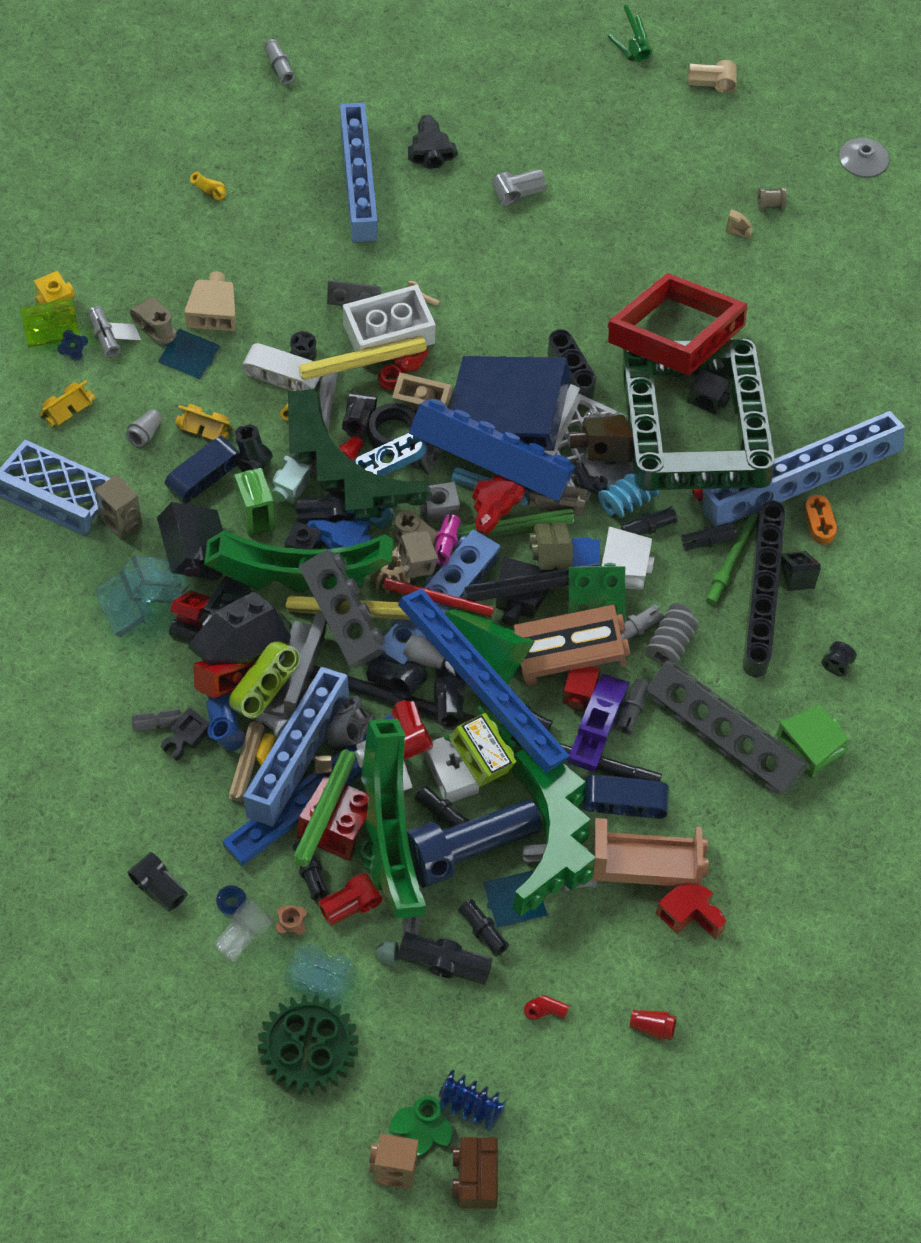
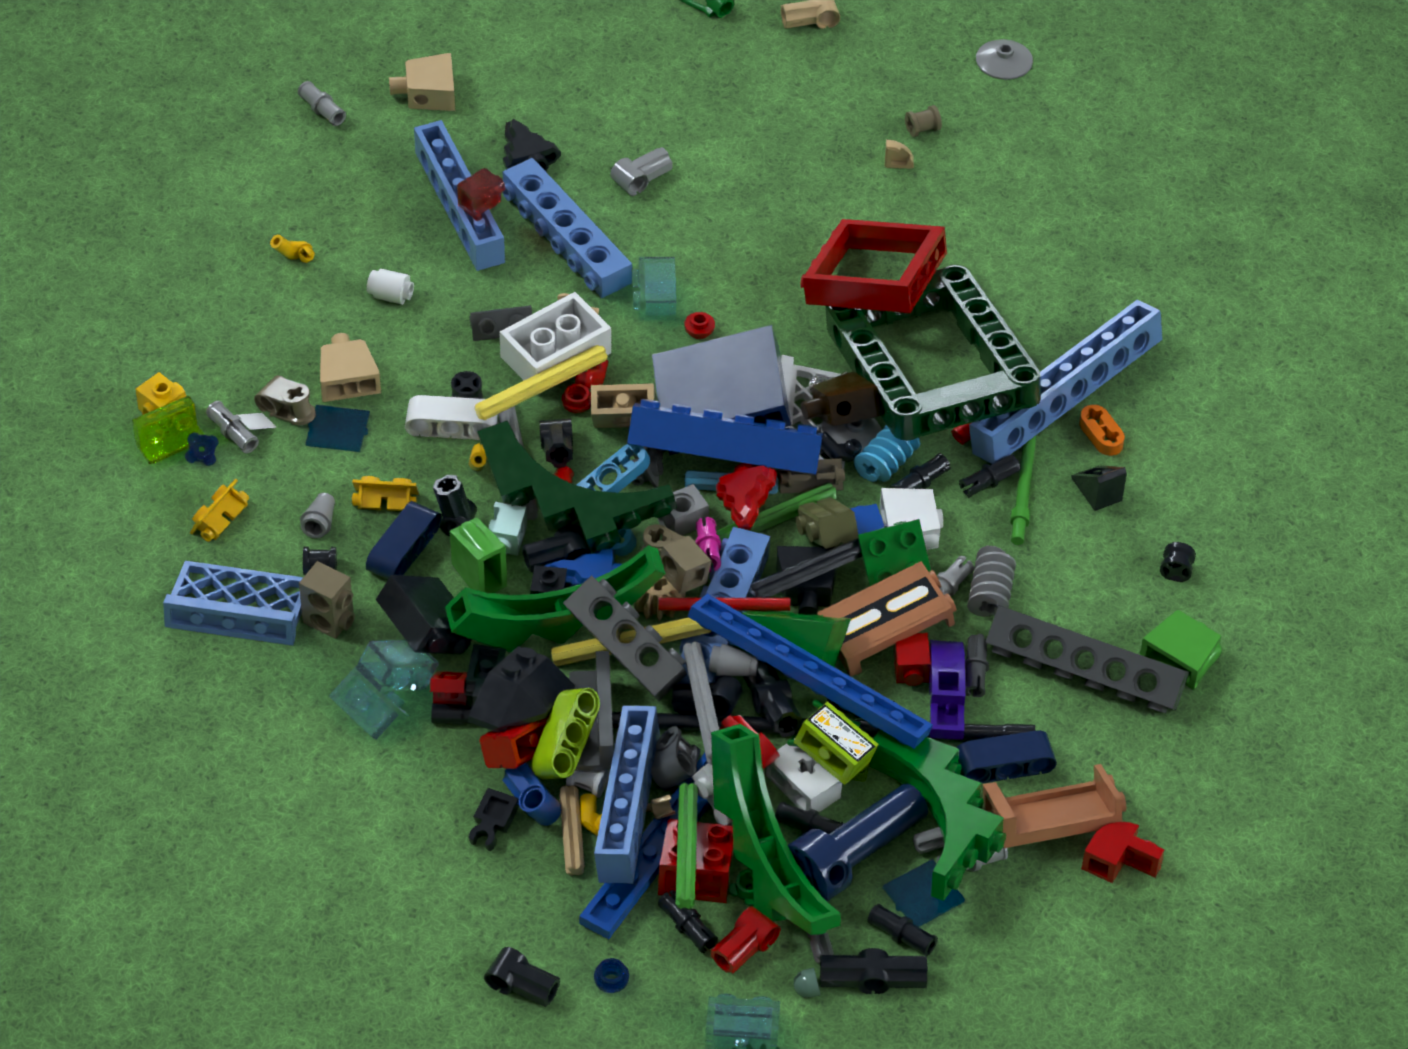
camera: 15 degrees left, 10 degrees down
(130, 468) = (327, 557): none -> black bush
(149, 720) = (446, 815): flat silver piece -> none
(247, 924) = (642, 993): clear piece -> none
(274, 239) = (390, 286): none -> white brick
(285, 914) = (683, 970): nougat plate -> none
(369, 177) = (480, 193): none -> clear red brick
(371, 64) = (427, 83): none -> tan torso
(384, 413) = (591, 433): black tyre -> none
(387, 673) = (701, 694): none -> light grey axle
(437, 223) = (567, 228): none -> medium blue brick
(490, 296) = (656, 289): none -> clear light blue brick
(516, 342) = (699, 325): none -> red plate
(543, 1006) = (999, 991): red arm -> none
(563, 345) = (754, 316): black beam -> none
(654, 1023) = (1125, 976): red cone -> none
(709, 392) = (933, 330): black brick -> none
(764, 598) = (1070, 512): black beam -> none

